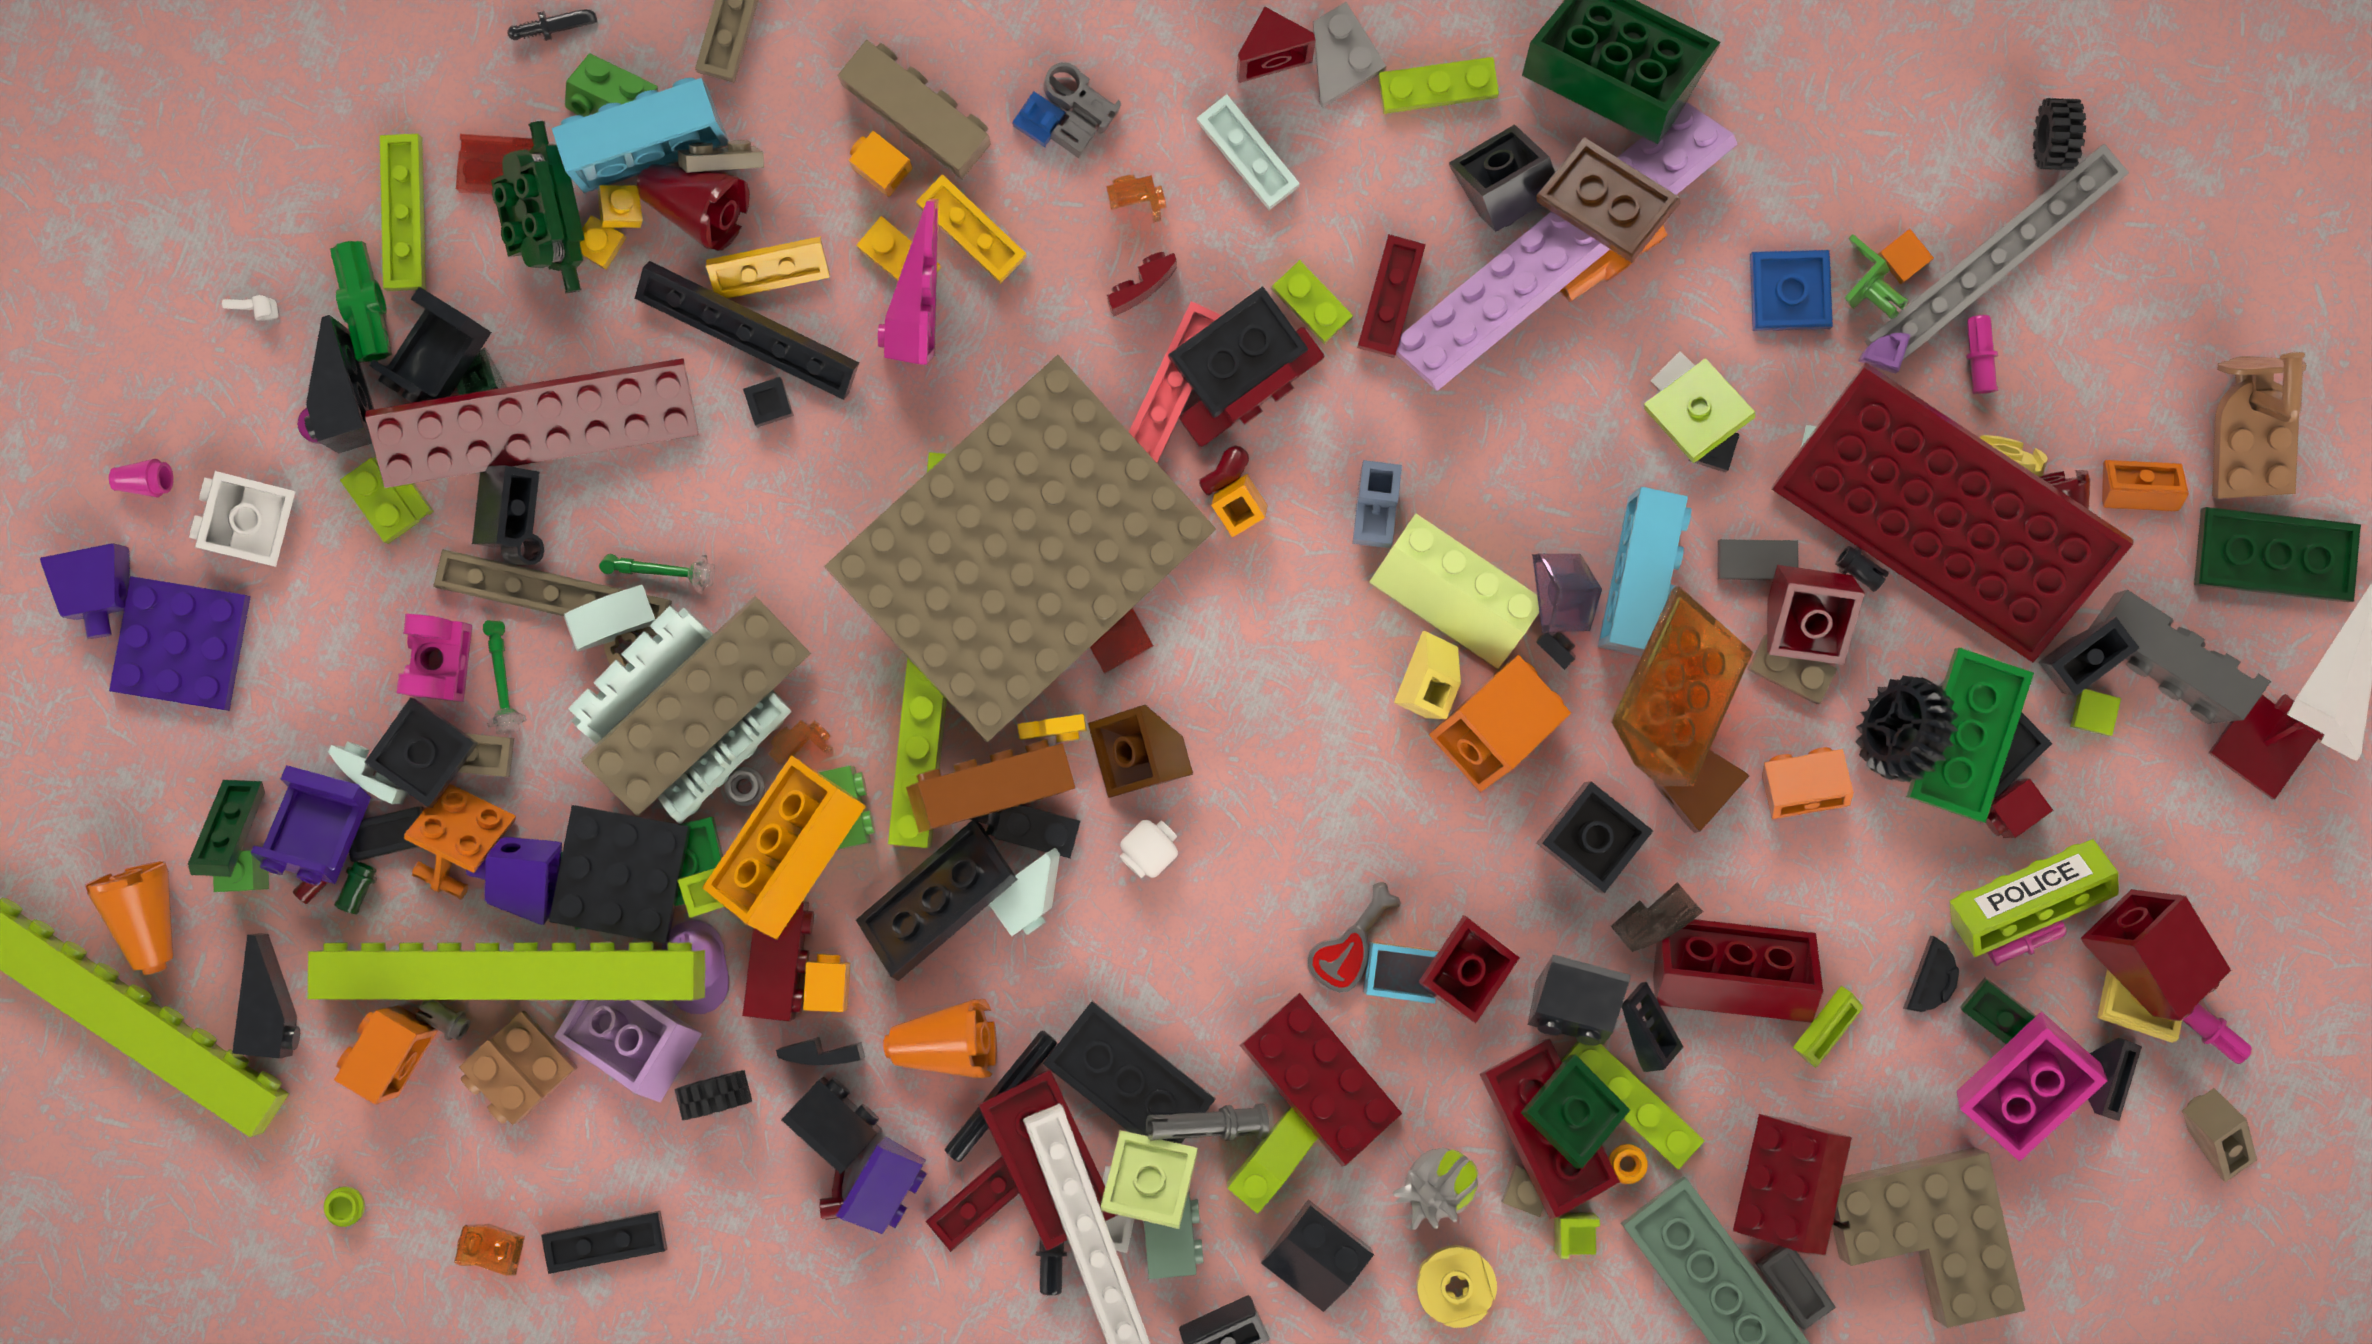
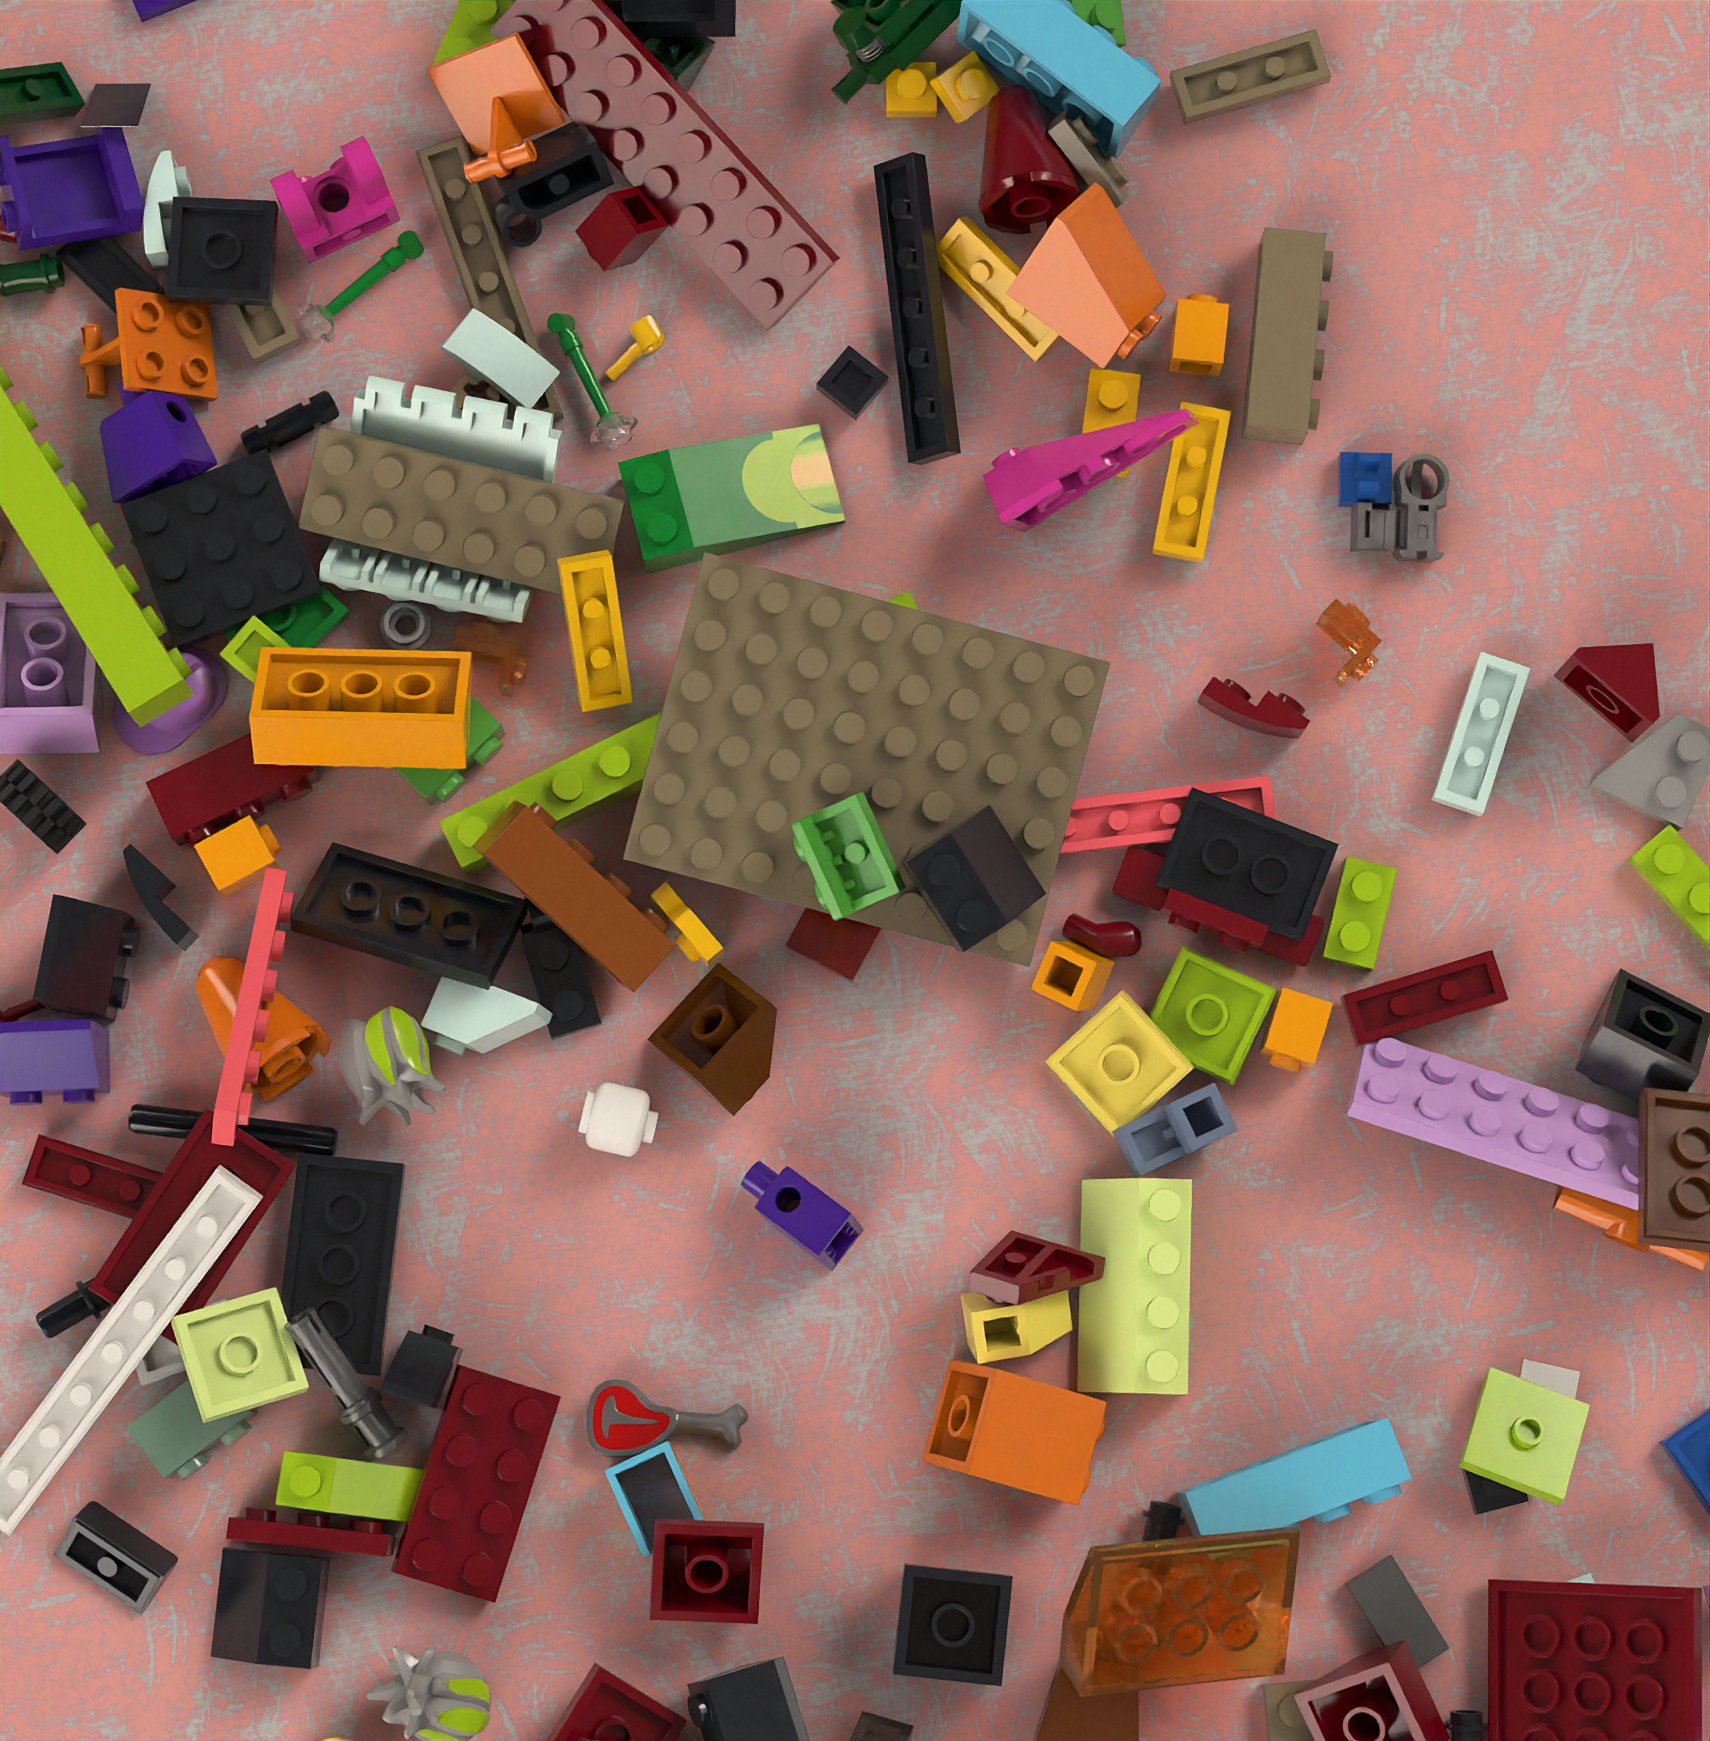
camera: 55 degrees right, 5 degrees down
(277, 761) = (116, 105): none -> black sticker
(436, 513) = (497, 104): none -> orange plate
(563, 779) = (290, 423): none -> black axle
(572, 485) = (621, 228): none -> dark red brick
(655, 514) = (648, 340): none -> yellow hand
(791, 526) = (729, 495): none -> green slope
(803, 207) = (1091, 281): none -> orange slope
(826, 667) = (595, 630): none -> yellow plate
(944, 1043) = (250, 1021): none -> coral plate
(1022, 972) = (387, 1064): none -> light grey hair
(1077, 599) = (847, 856): none -> bright green bracket
(1142, 528) = (973, 879): none -> black slope
(1229, 1068) = (423, 1367): none -> black slope
(1287, 1202) = (311, 1532): none -> dark red plate
(1296, 765) = (818, 1222): none -> dark purple torso
(1312, 511) = (1119, 1063): none -> light yellow plate
(1317, 437) = (1212, 1013): none -> lime plate
(1360, 388) = (1295, 1030): none -> light orange brick
(1407, 648) = (1032, 1268): none -> dark red wing
(1558, 647) = (1144, 1443): black plate -> none
(1565, 592) = (1212, 1411): clear purple slope -> none
(1614, 670) = (1162, 1521): none -> black pin

